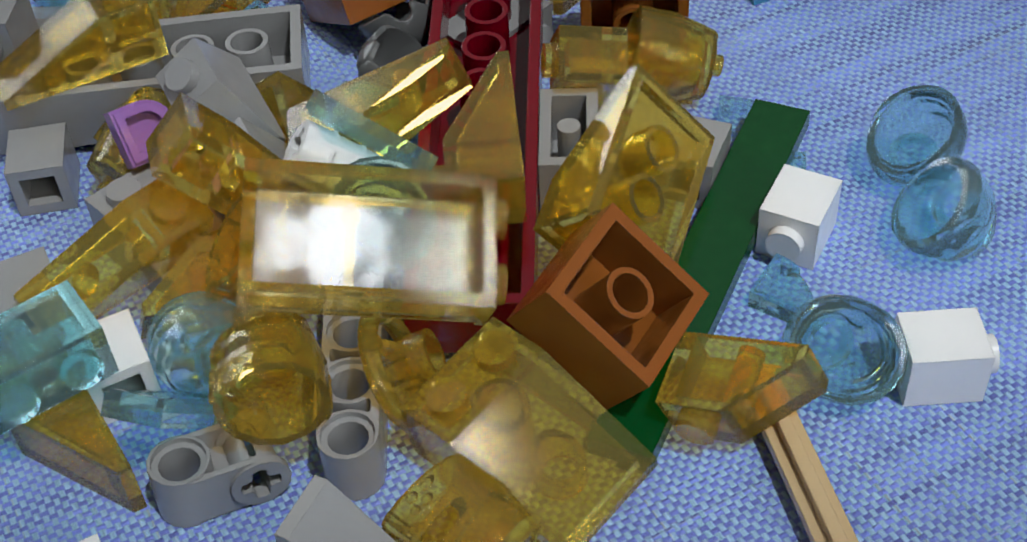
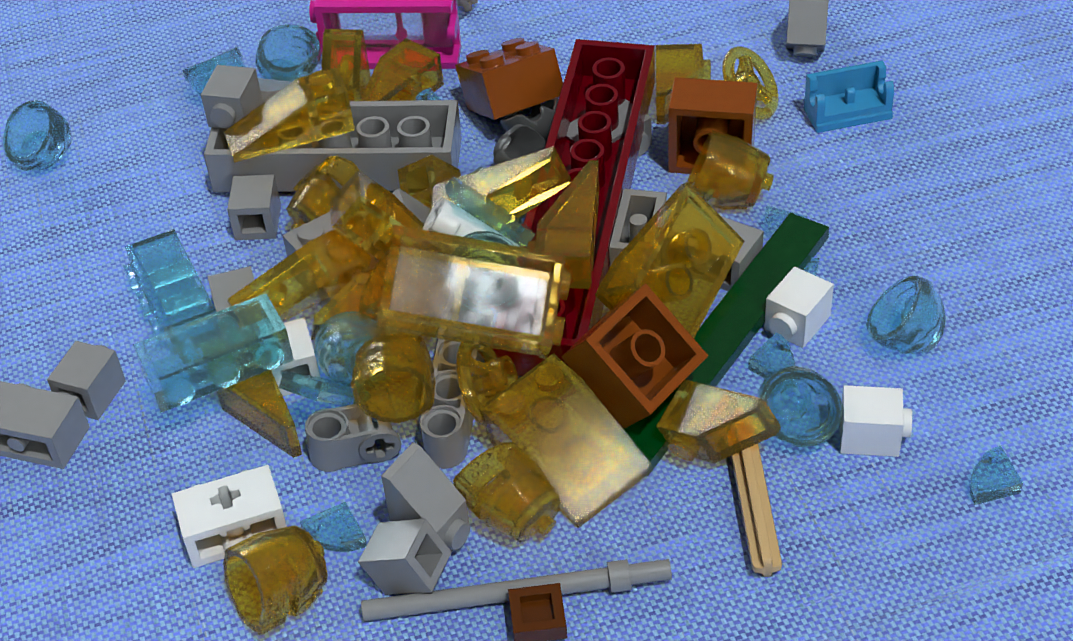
camera: 10 degrees right, 0 degrees up
(132, 127) = (323, 186): medium lavender tile -> none
(217, 82) = (387, 162): light grey slope -> none
(586, 58) = (660, 168): clear yellow slope -> none
(914, 131) = (901, 250): clear light blue hat -> none

